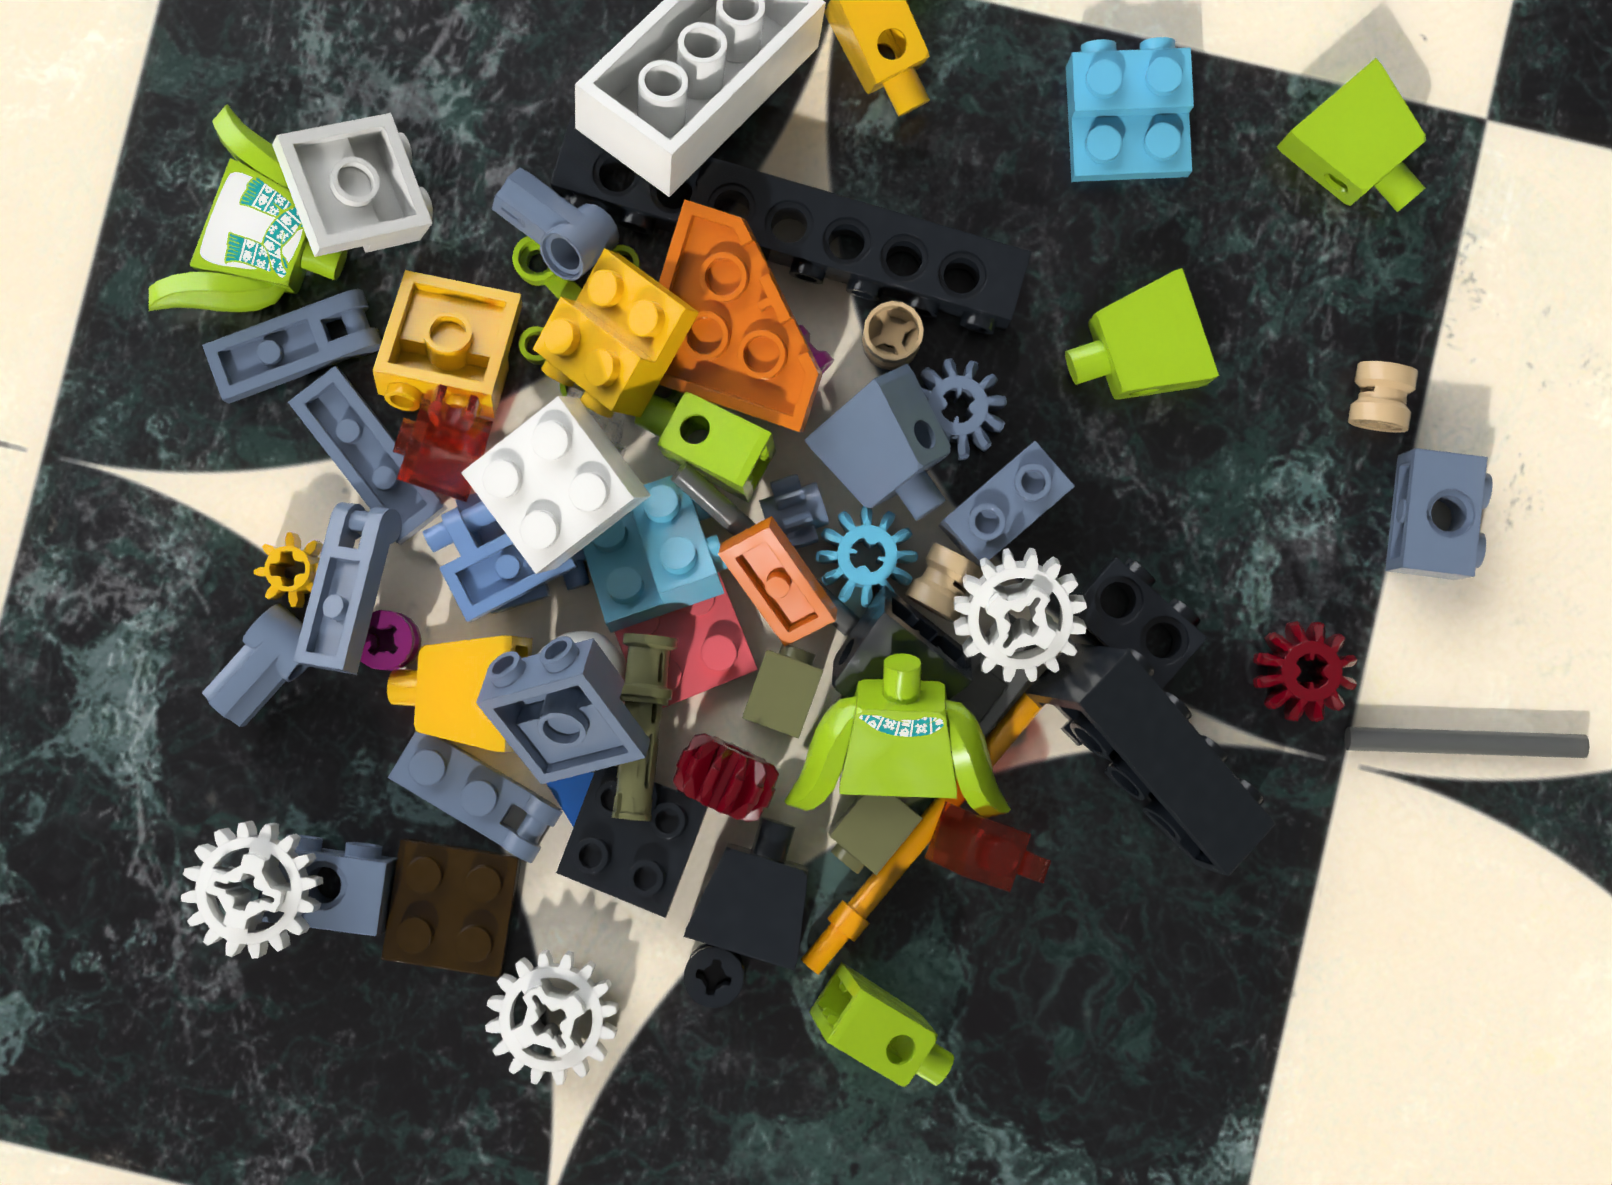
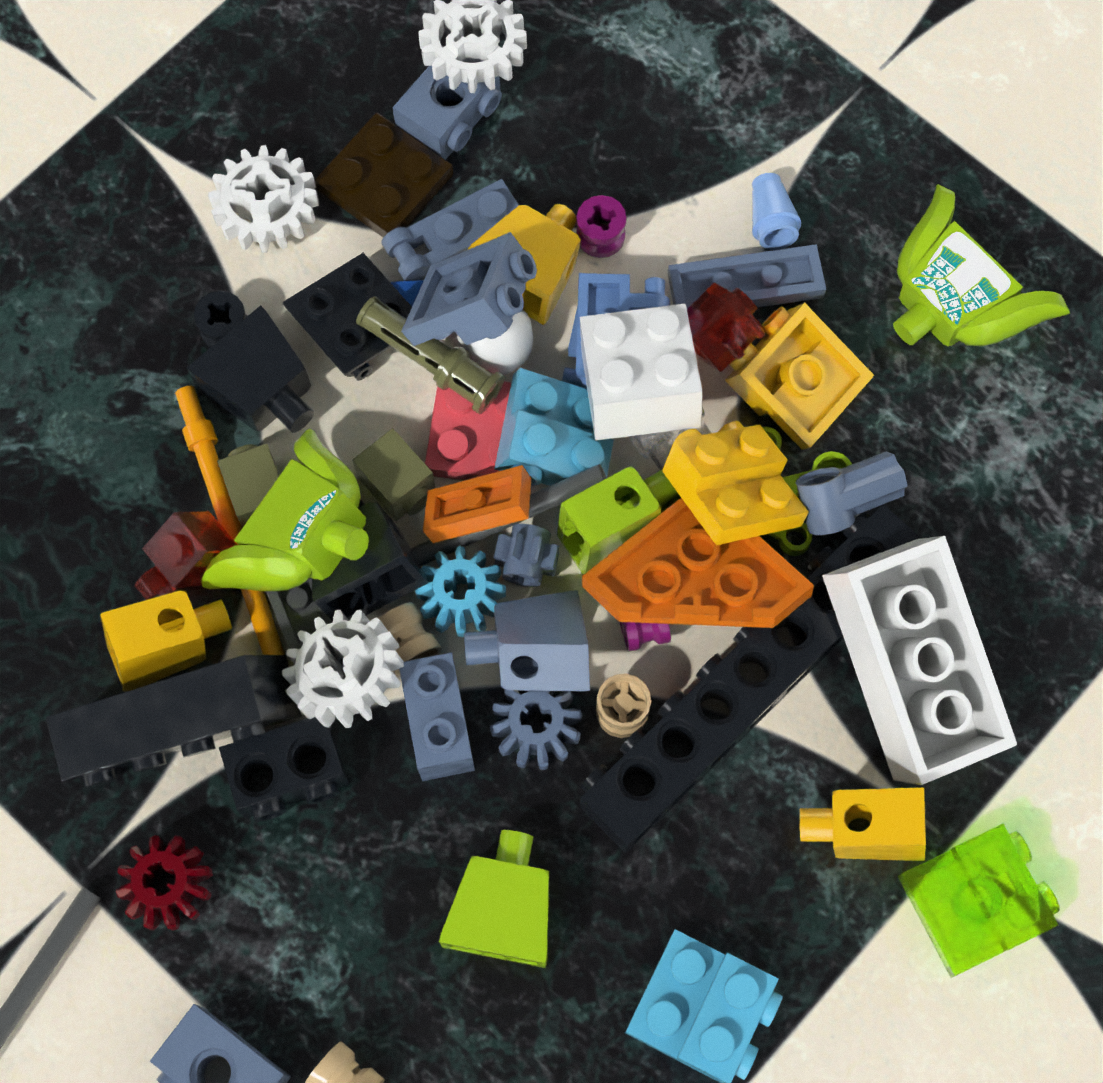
camera: 125 degrees right, 15 degrees down
(258, 667) = (634, 148): sand blue piece -> none
(271, 468) = (773, 213): none -> light blue cone
(285, 557) = (676, 194): yellow gear -> none
(290, 346) = (859, 269): sand blue plate -> none
(346, 587) = (654, 209): sand blue plate -> none
(354, 185) = (957, 364): white plate -> none
(725, 777) = (356, 396): dark red gear -> none
(879, 1029) = (107, 405): lime torso -> none
(1104, 834) = (160, 636): none -> yellow torso

